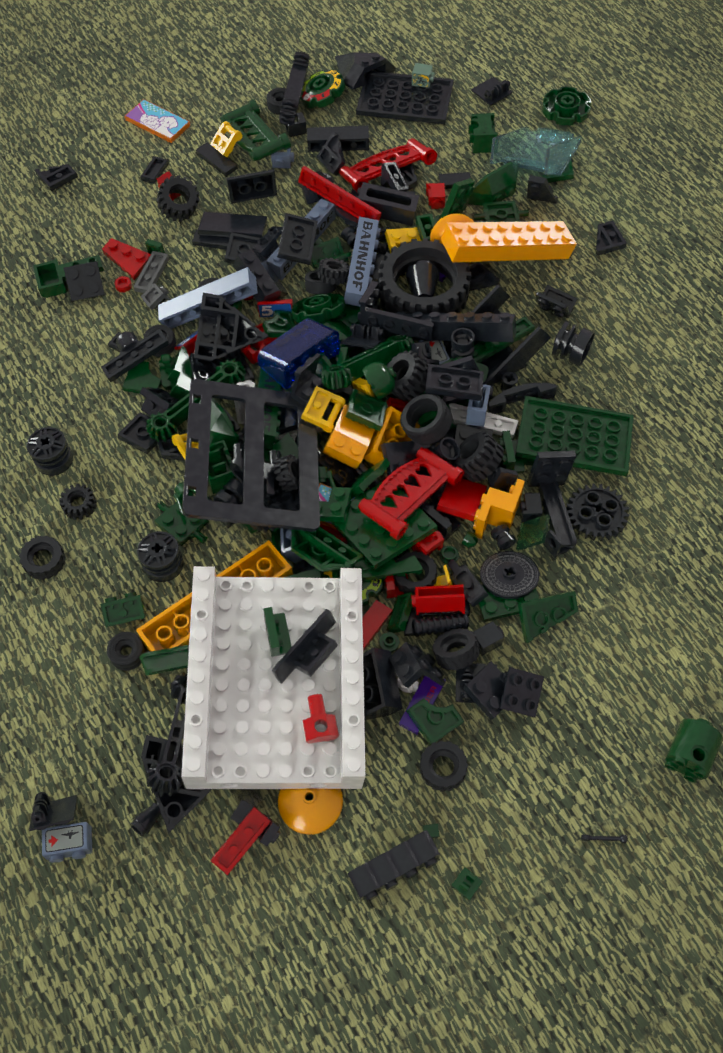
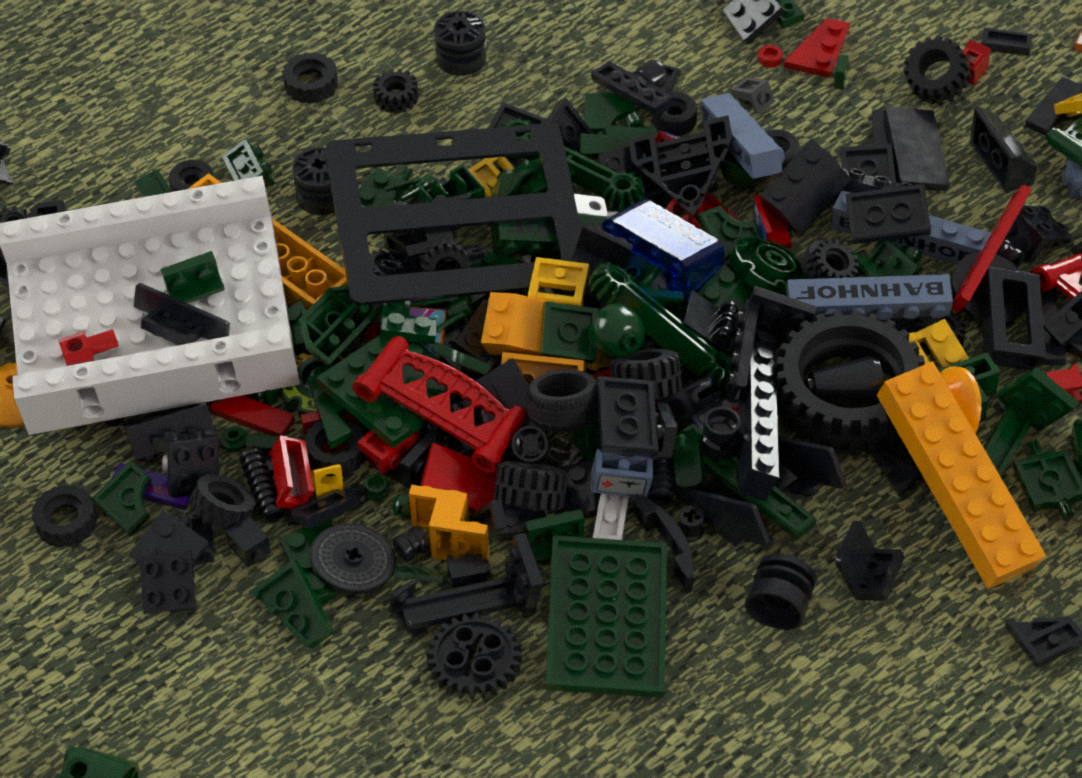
camera: 80 degrees right, 10 degrees down
(151, 271) = (798, 78): dark grey plate -> none

